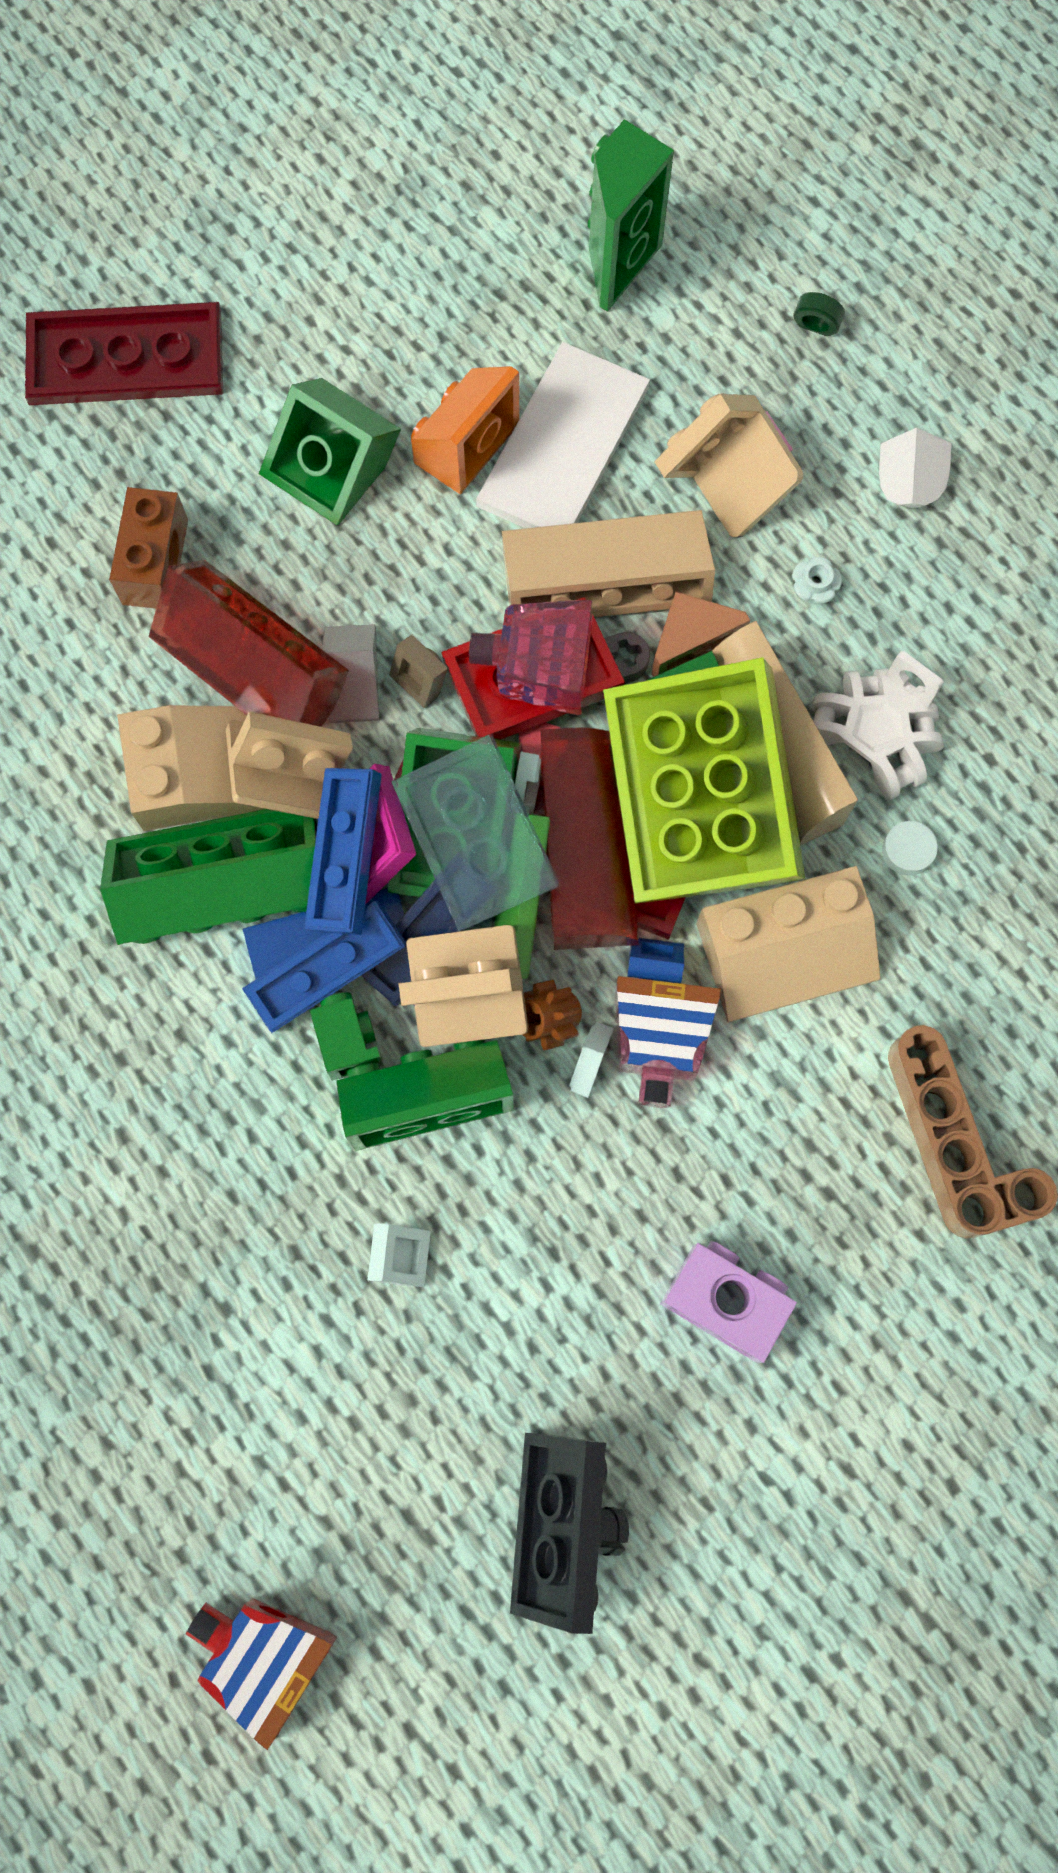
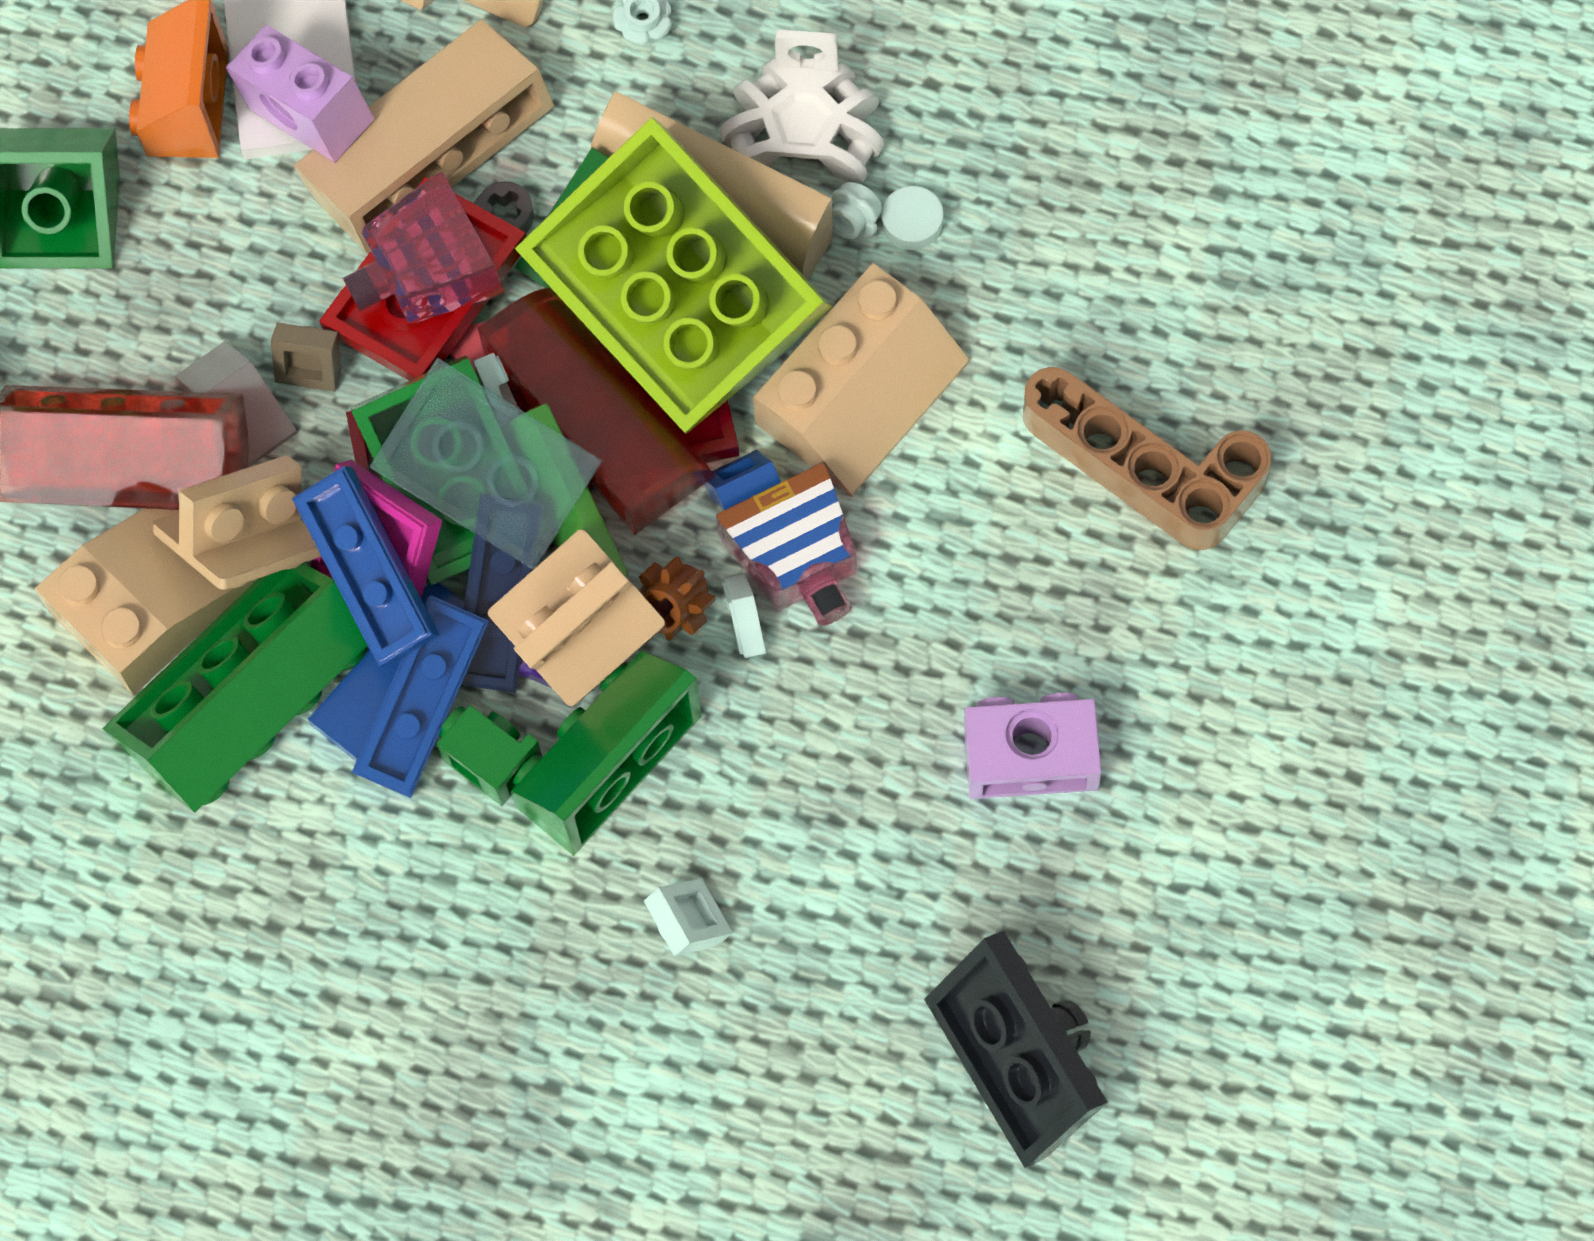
camera: 30 degrees left, 5 degrees down
(538, 482) = (300, 93): none -> lavender brick
(694, 630) = (557, 141): nougat slope -> none
(871, 816) = (855, 211): none -> light aqua plate

